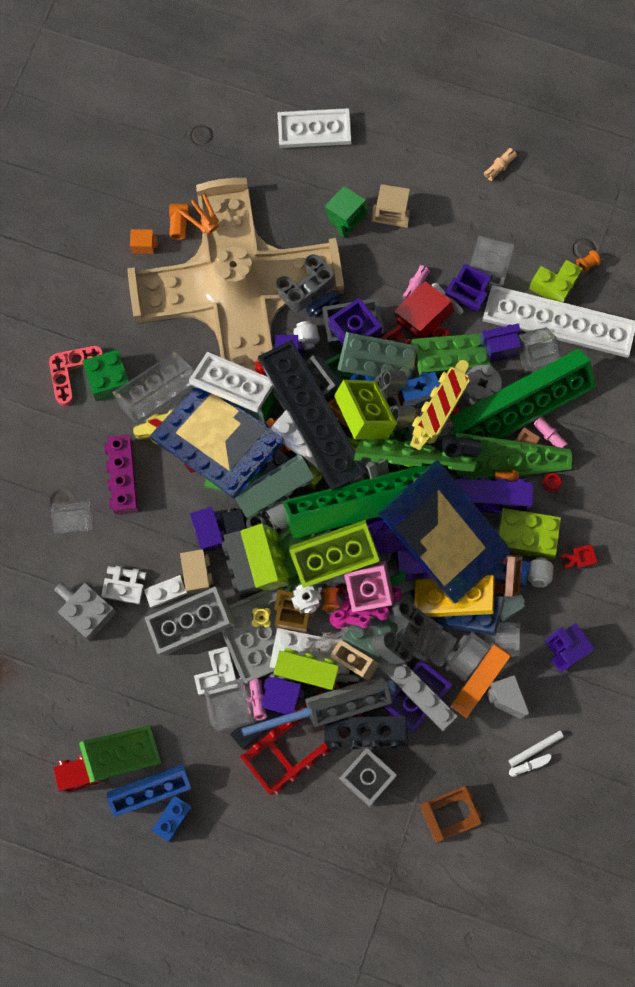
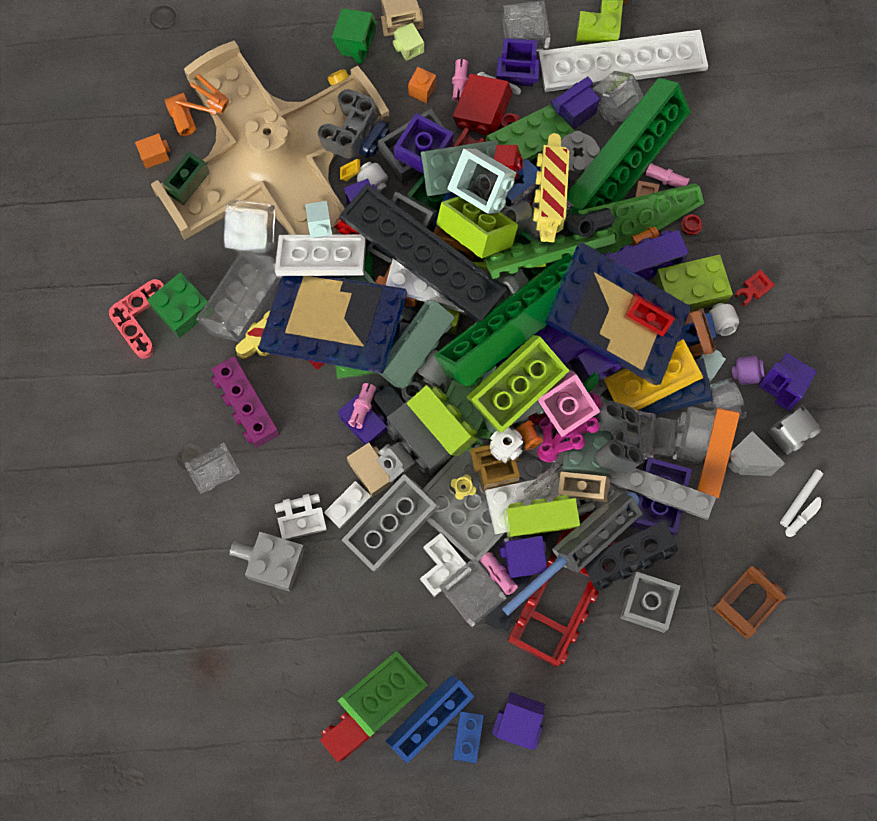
camera: 30 degrees left, 0 degrees up
(156, 275) = (186, 178): none -> dark green brick
(188, 334) = (249, 226): none -> clear brick
(210, 517) = (362, 405): none -> bright pink pin
(216, 572) = (395, 460): none -> light grey brick
(219, 825) = (520, 721): none -> dark purple plate
(242, 352) = (318, 219): none -> light aqua brick
(291, 321) = (350, 170): none -> yellow piece
(317, 240) = (337, 76): none -> yellow tile
(371, 364) = (464, 173): none -> light aqua window
(382, 274) = (422, 85): none -> orange brick
(388, 234) = (408, 41): none -> yellowish green brick
(416, 367) = (510, 157): none -> red brick
(471, 543) = (649, 315): none -> red slope
(541, 623) = (748, 370): none -> medium lavender head
(554, 688) = (794, 429): none -> light grey brick

